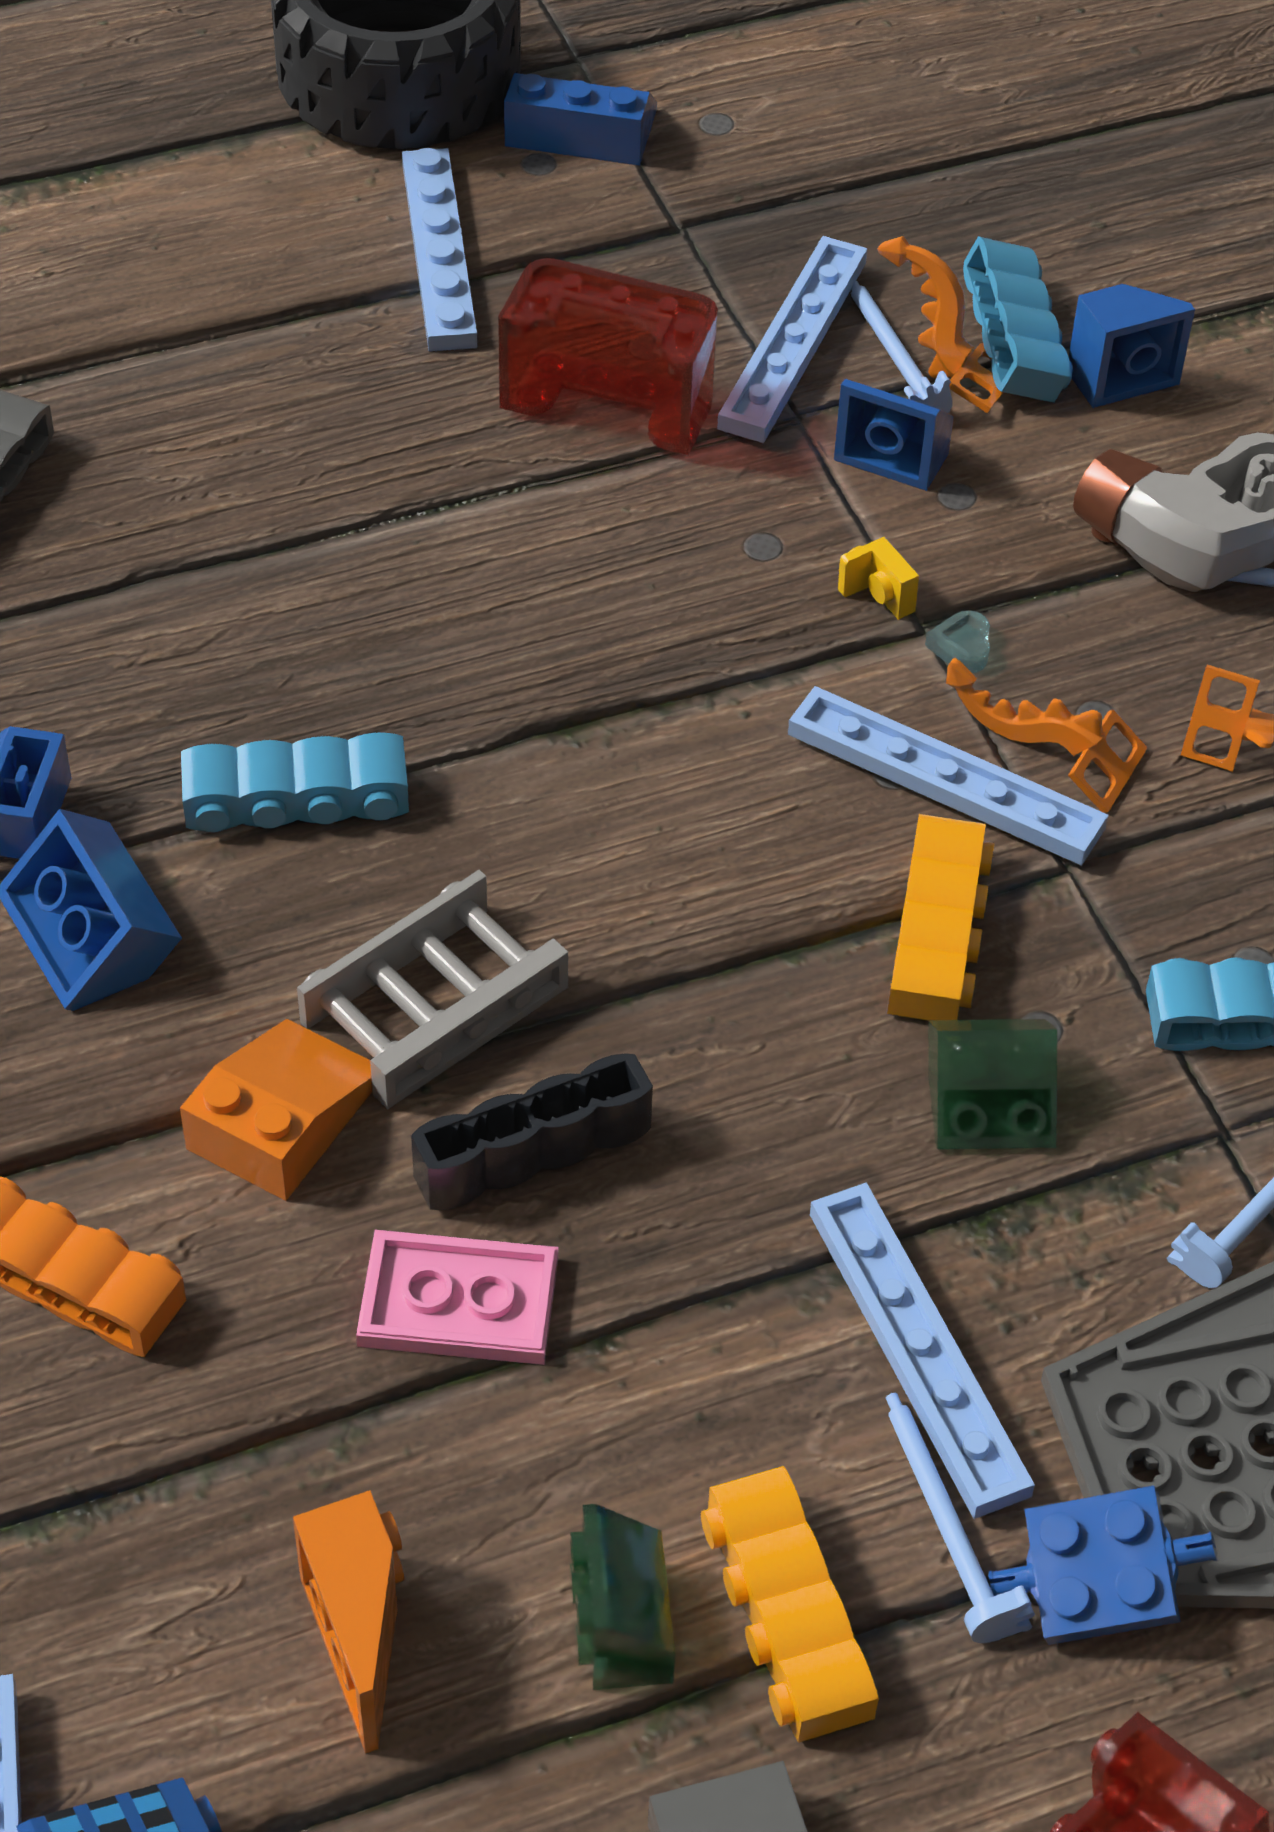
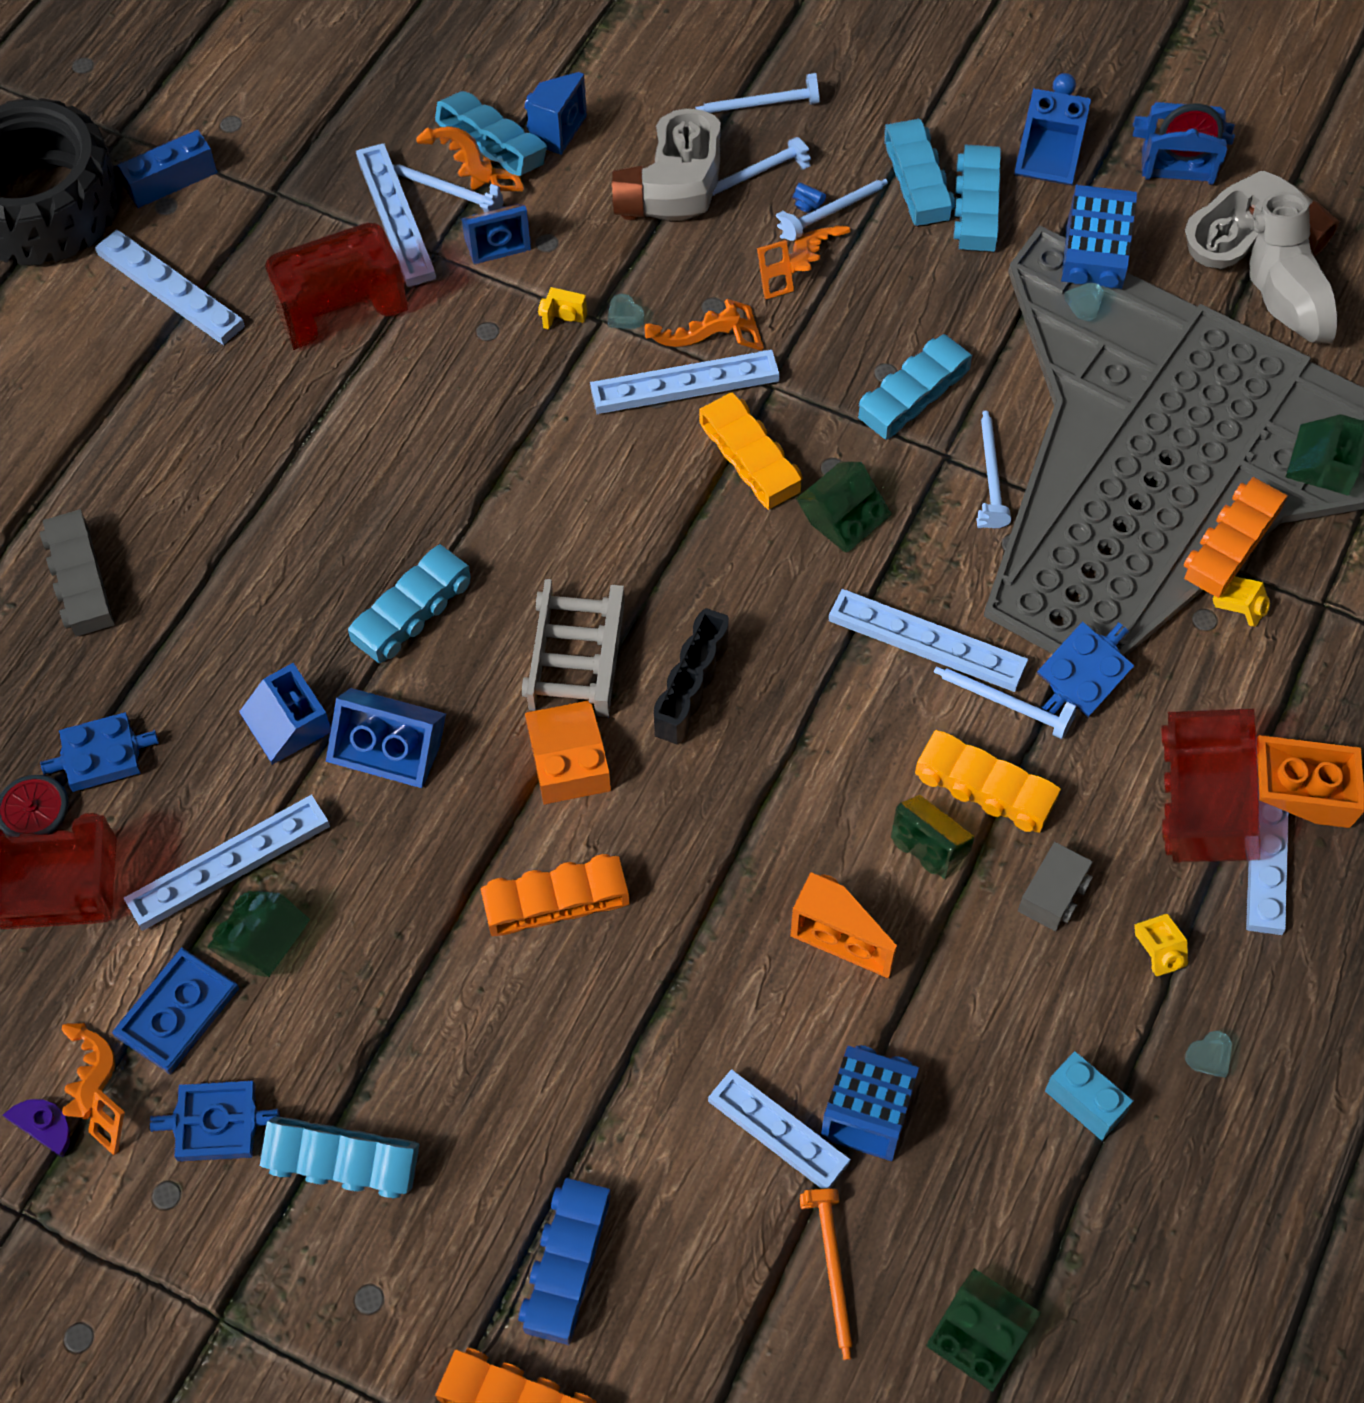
camera: 40 degrees left, 10 degrees up
(458, 1297) = (728, 771): bright pink tile -> none

